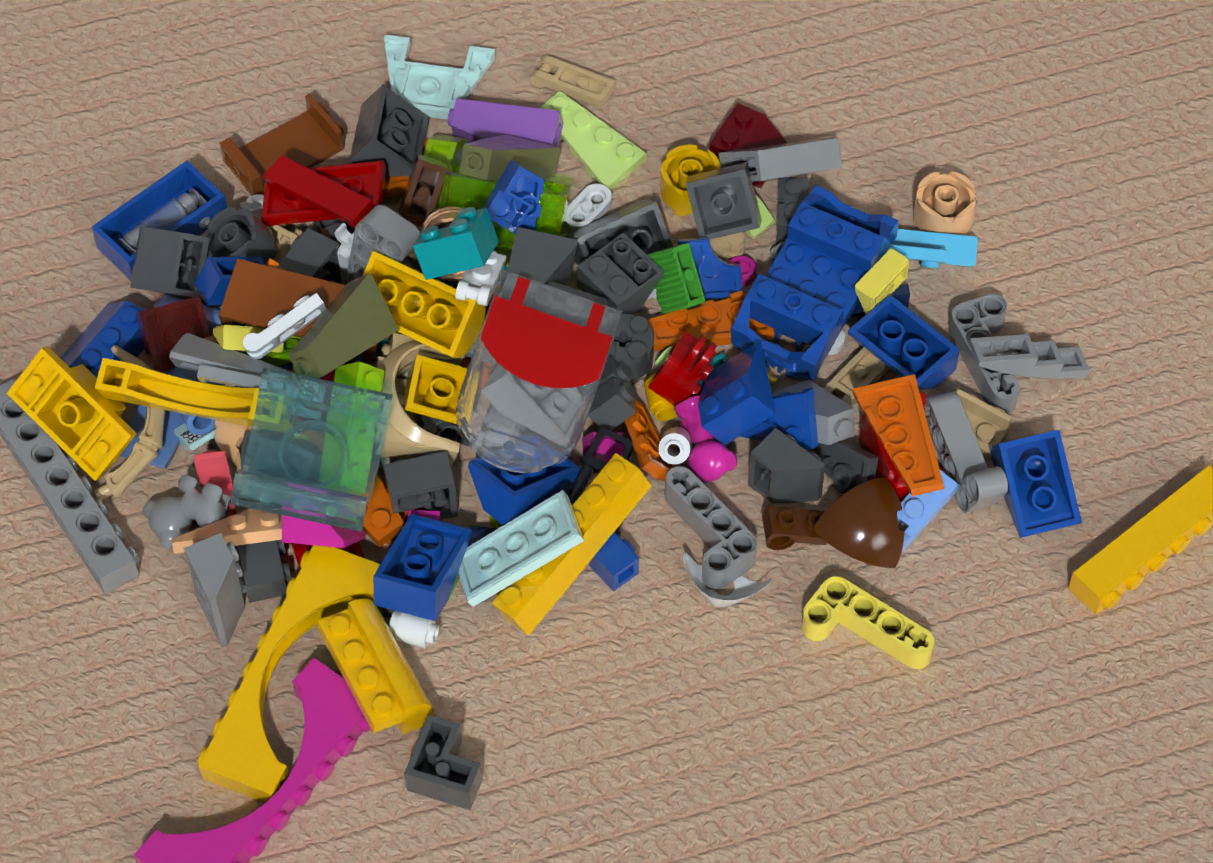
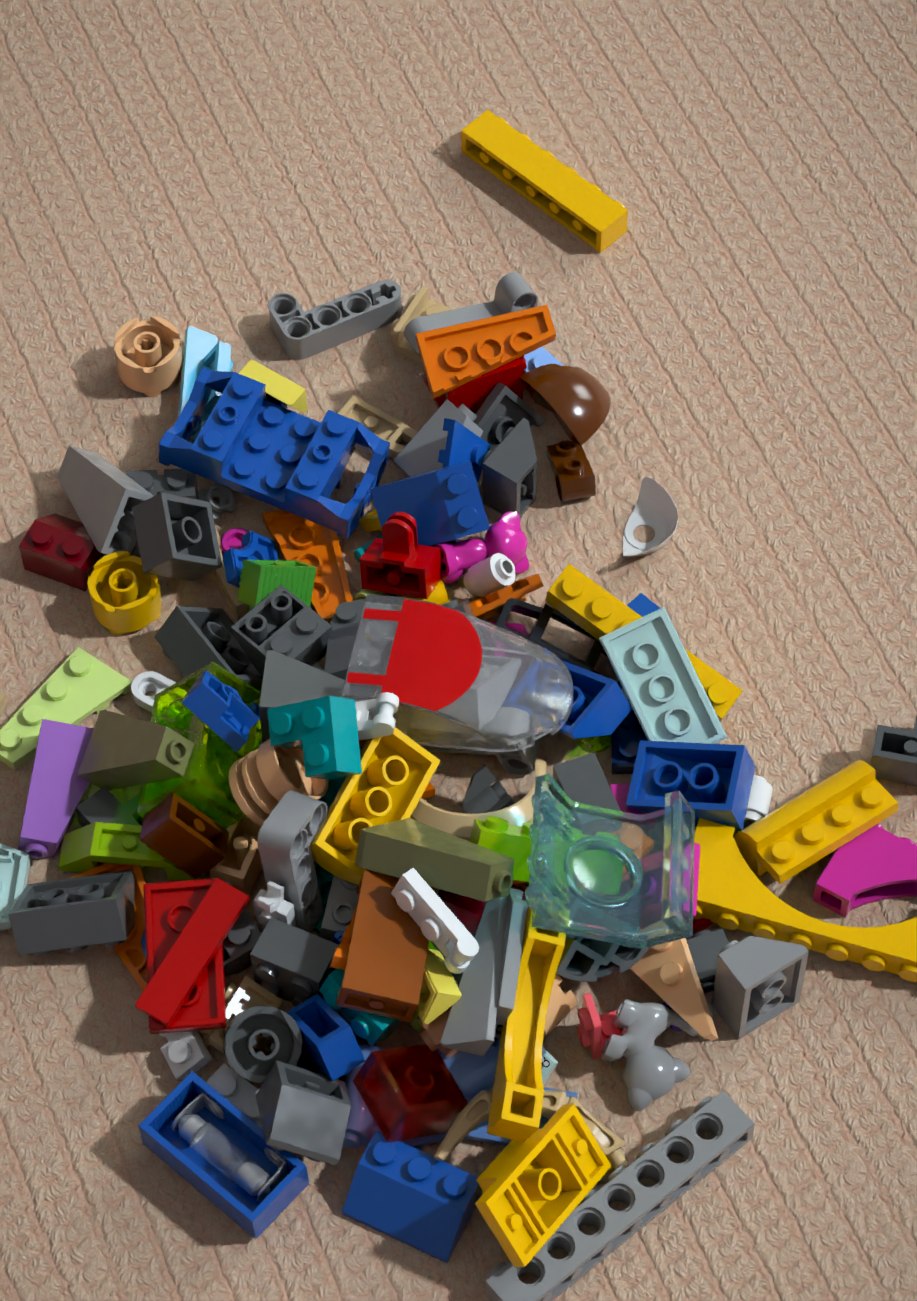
camera: 95 degrees left, 0 degrees up
(303, 139) = (84, 1041): dark orange panel -> none
(433, 388) = (473, 781): yellow slope -> none
(685, 493) = (585, 534): light grey beam -> none
(906, 343) = (344, 373): blue slope -> none
(911, 643) = (662, 412): light yellow beam -> none
(1029, 359) = (348, 271): light grey slope -> none
(1038, 483) = (473, 267): blue slope -> none

